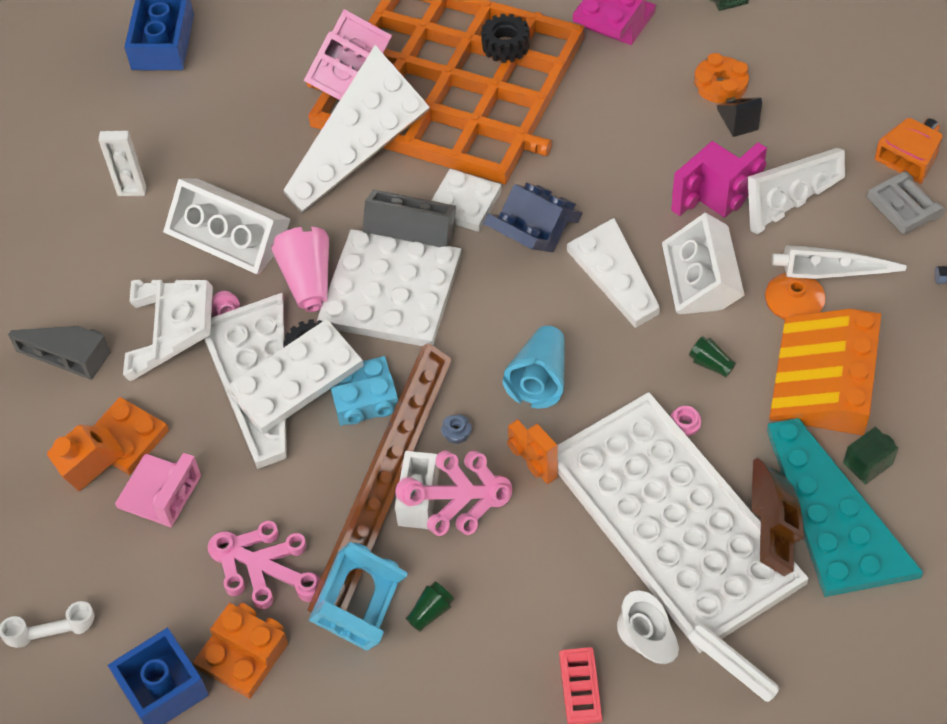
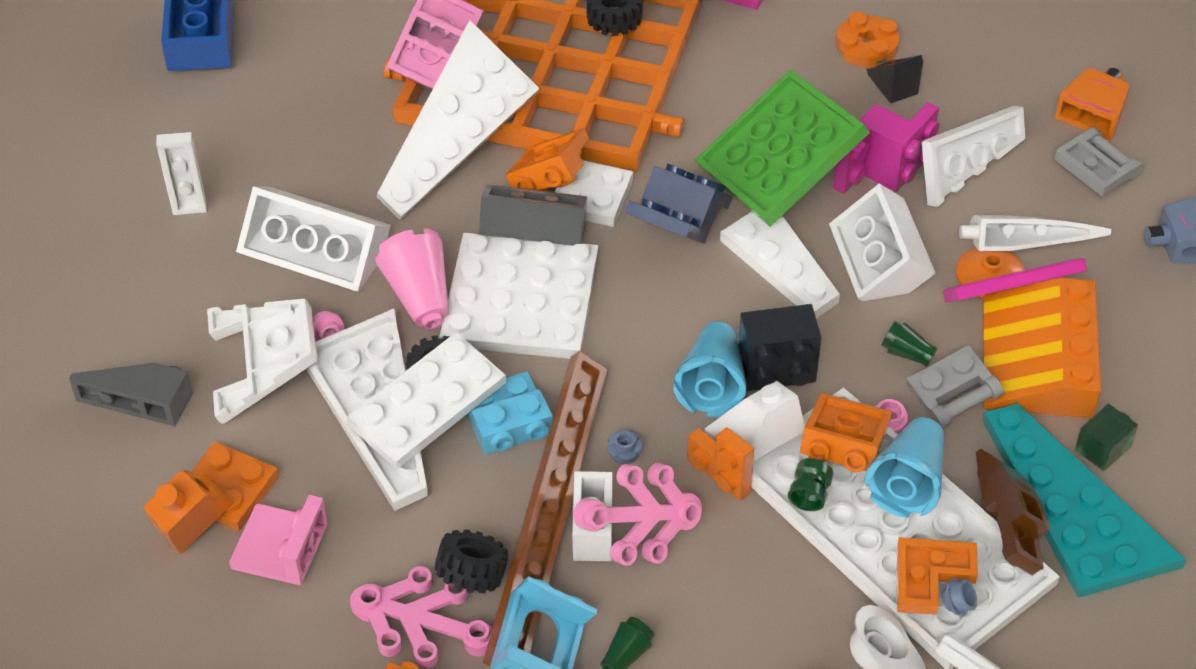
camera: 10 degrees left, 5 degrees down
(310, 520) = (471, 561): none -> black tyre
(429, 173) = (549, 163): none -> orange plate
(572, 418) = (763, 419): none -> white slope
(597, 352) = (779, 346): none -> black brick
(603, 480) = (810, 487): none -> dark green wheel
(626, 173) = (781, 147): none -> bright green plate
(641, 434) = (845, 432): none -> orange plate
(690, 472) = (909, 470): none -> medium azure cone
(695, 556) = (924, 564): none -> orange plate
(716, 590) = (959, 596): none -> sand blue plate
(742, 391) = (949, 378): none -> light grey plate
(812, 306) = (1014, 280): none -> dark pink tile

